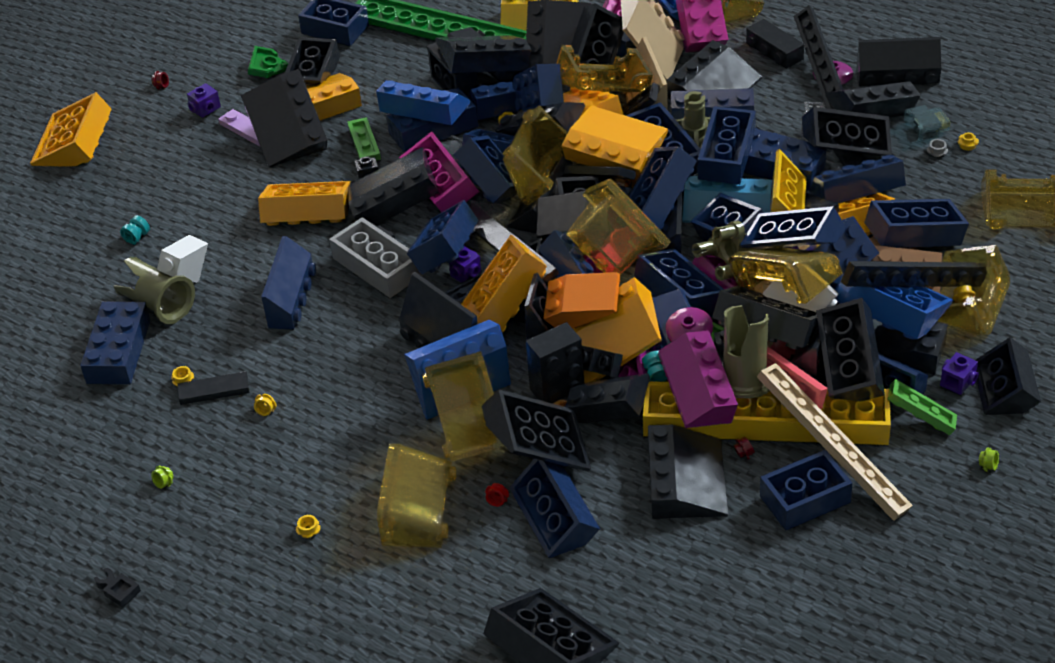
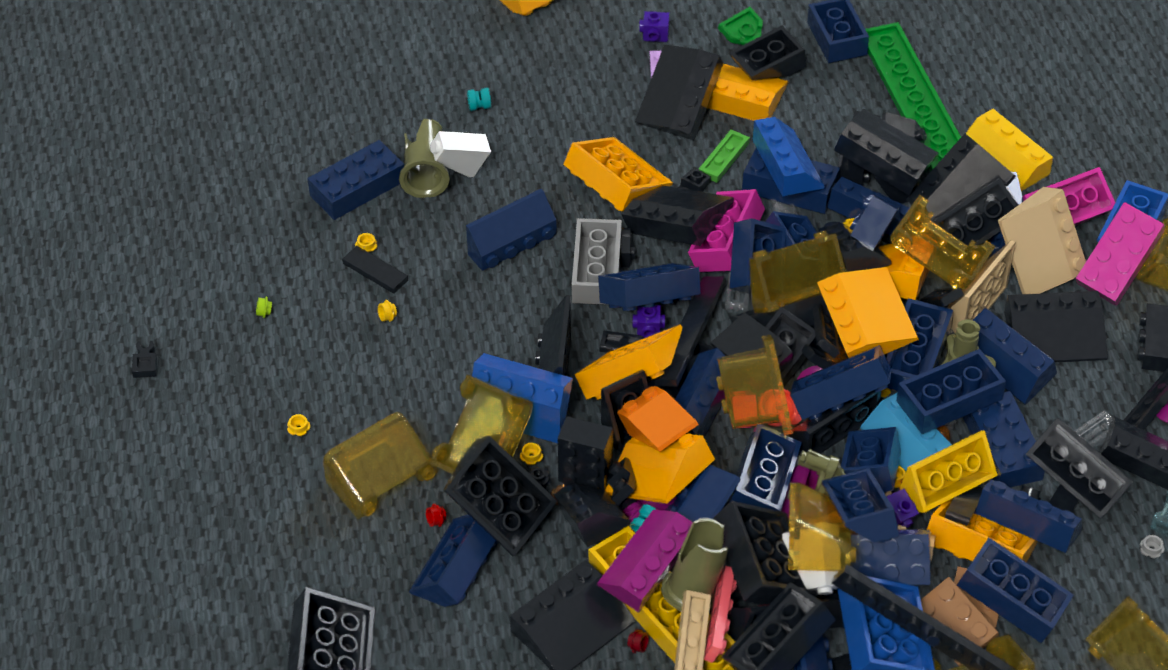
camera: 45 degrees right, 5 degrees up
(677, 326) = (712, 500): magenta dish -> none

